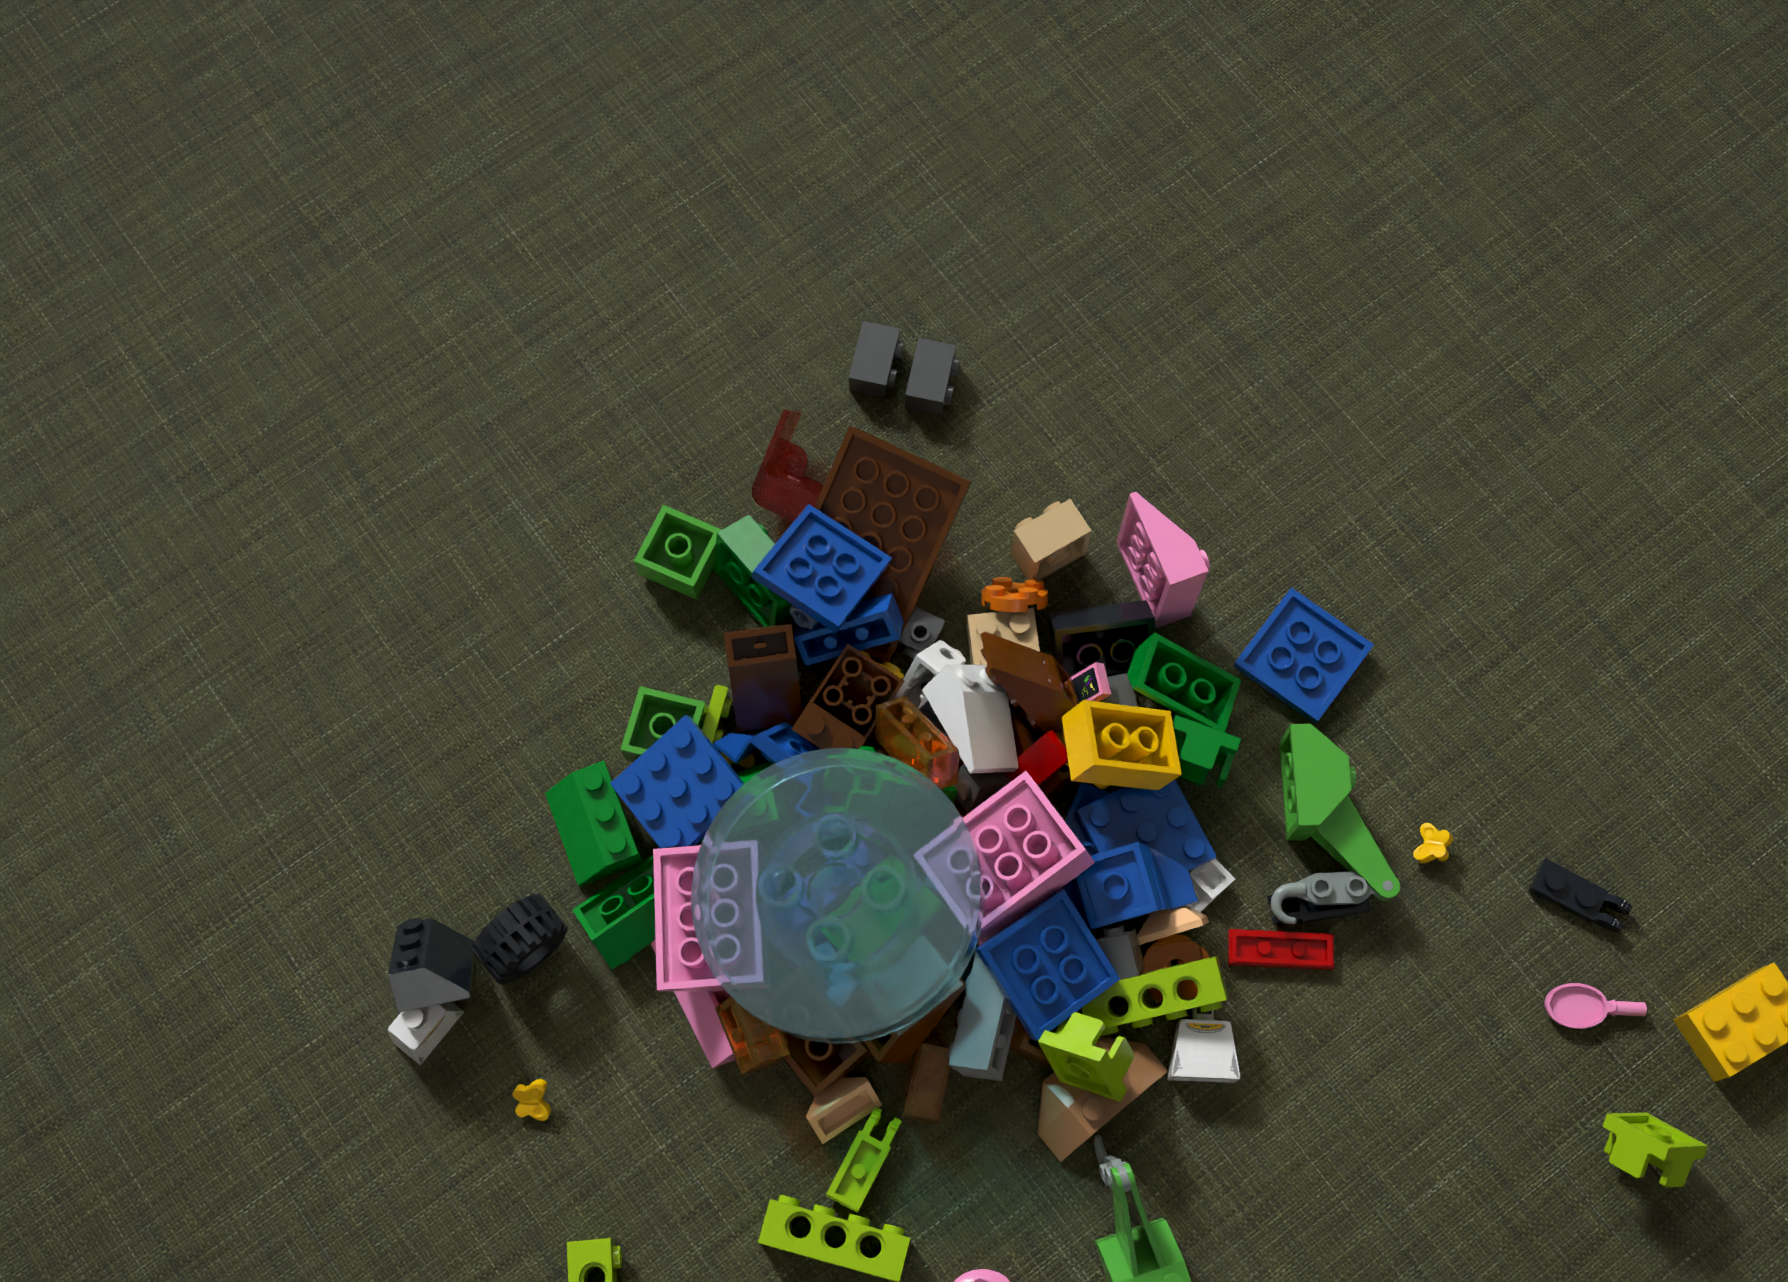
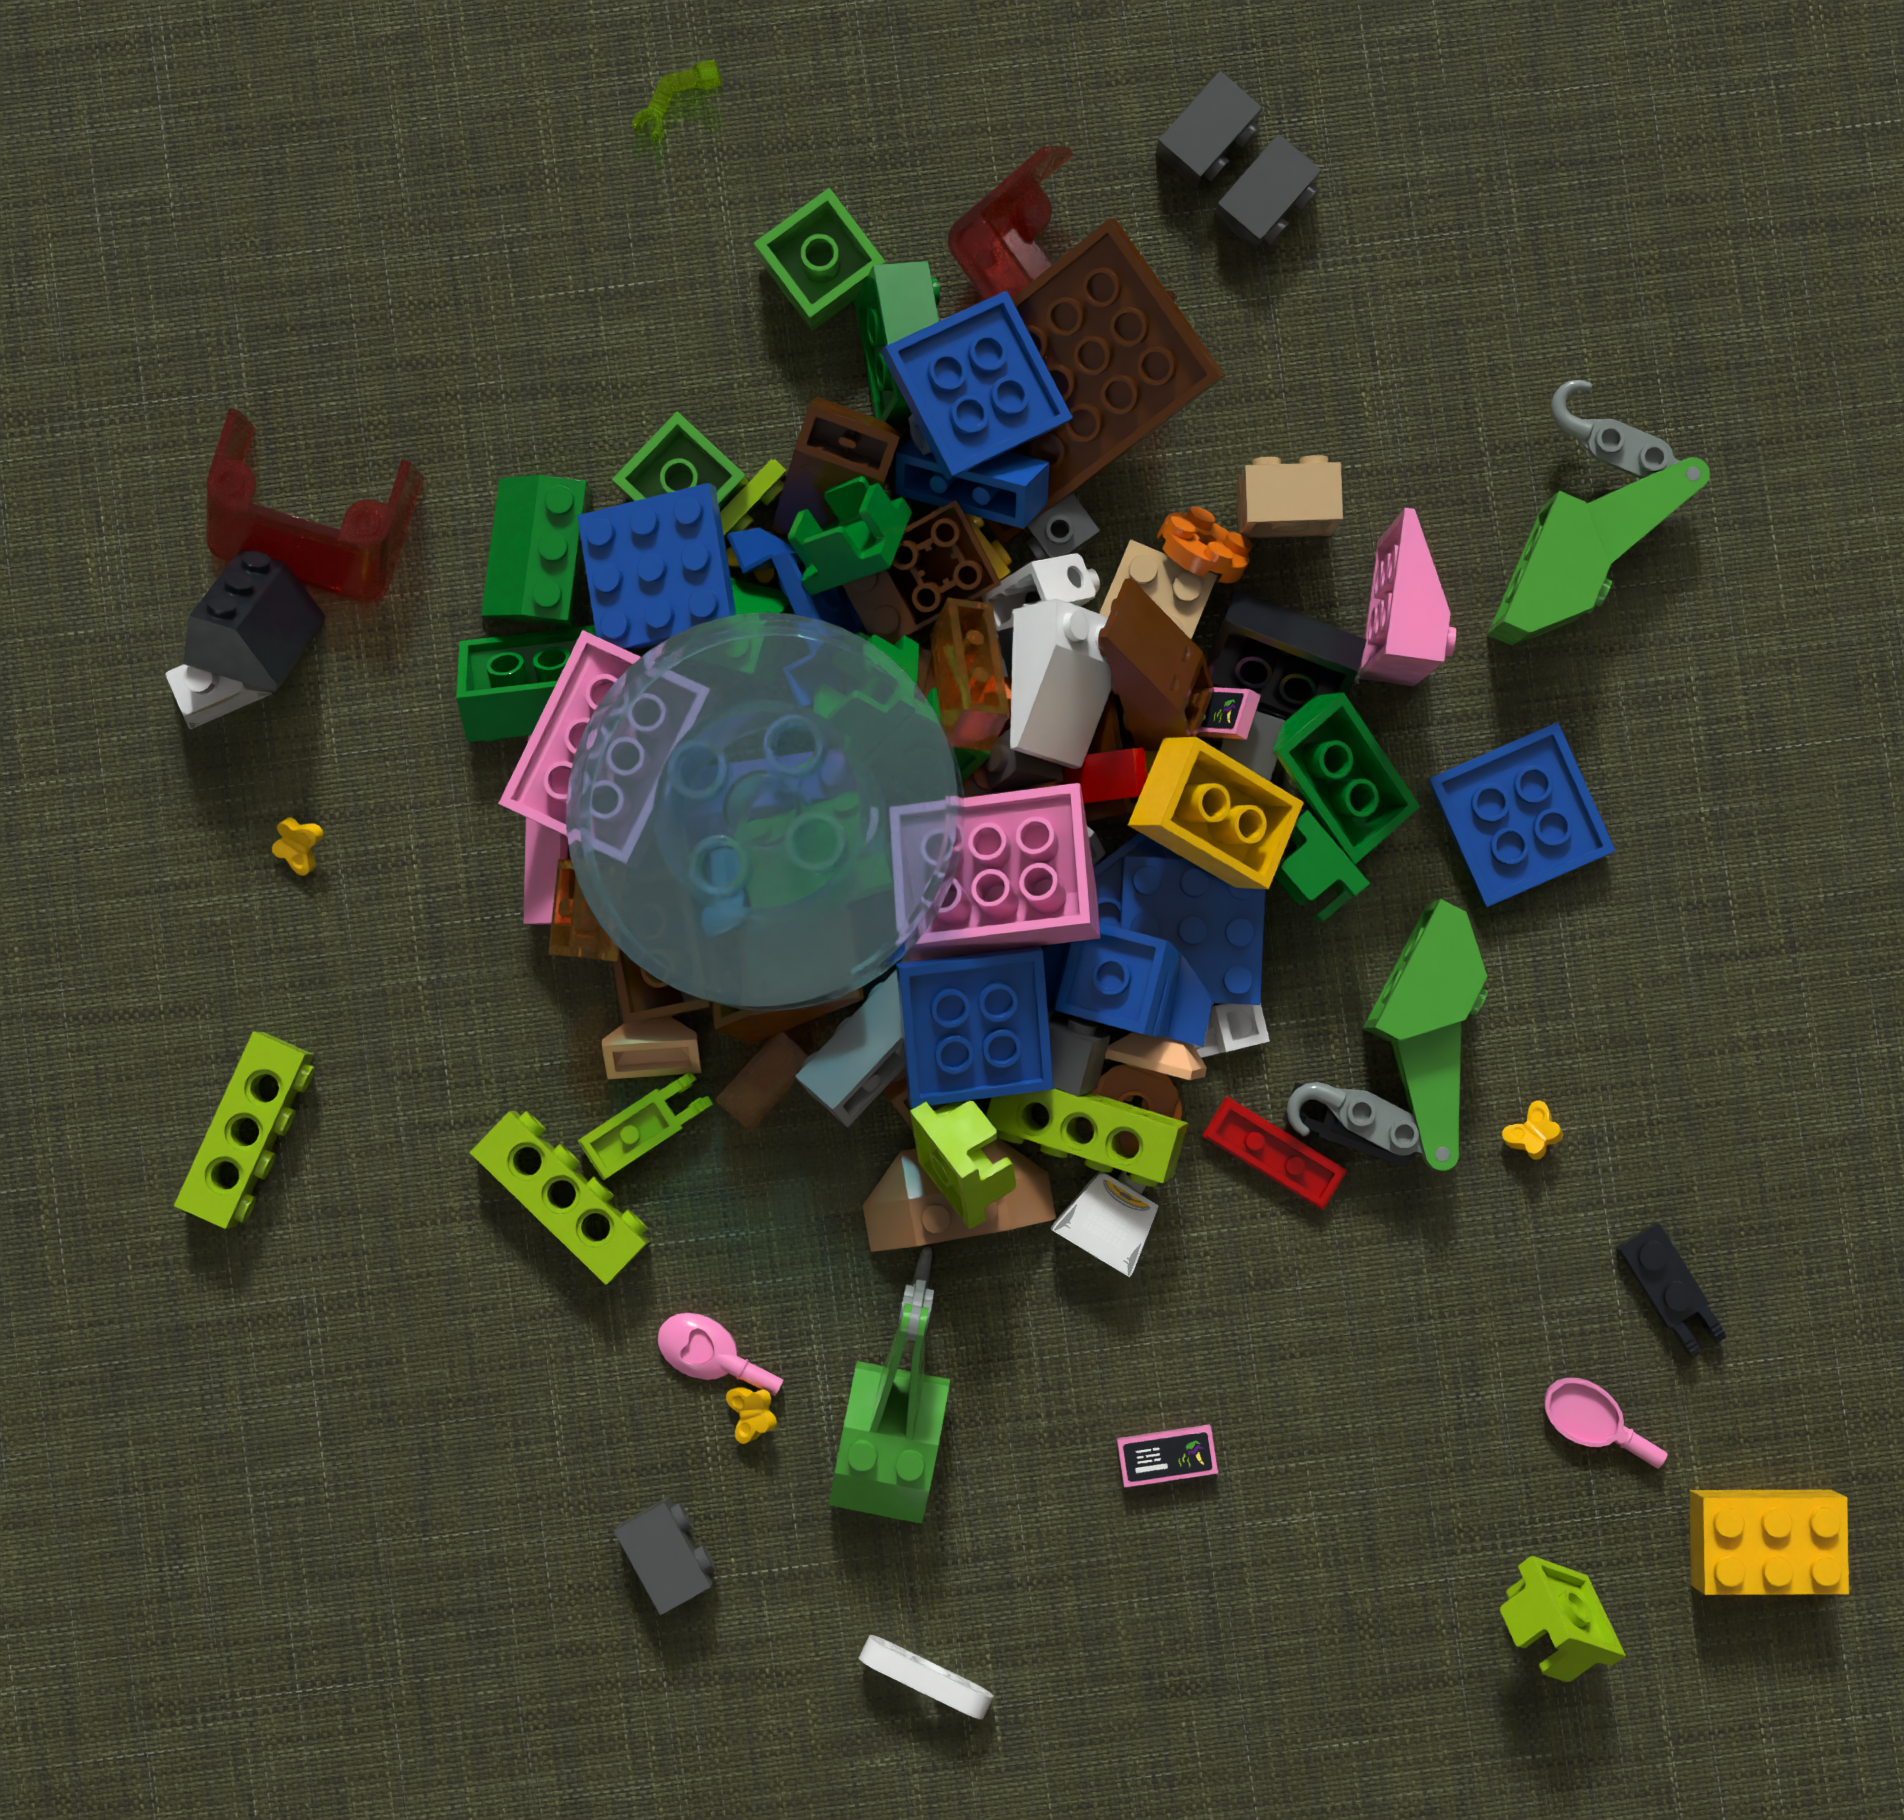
camera: 25 degrees right, 15 degrees up
(453, 900) = (342, 562): none -> clear red windscreen
(519, 939) = (374, 647): black tyre -> none
(546, 486) = (701, 76): none -> clear neon green arm
(801, 701) = (855, 544): none -> green panel
(1237, 475) = (1577, 542): none -> bright green slope
(1332, 1188) = (1167, 1455): none -> tile

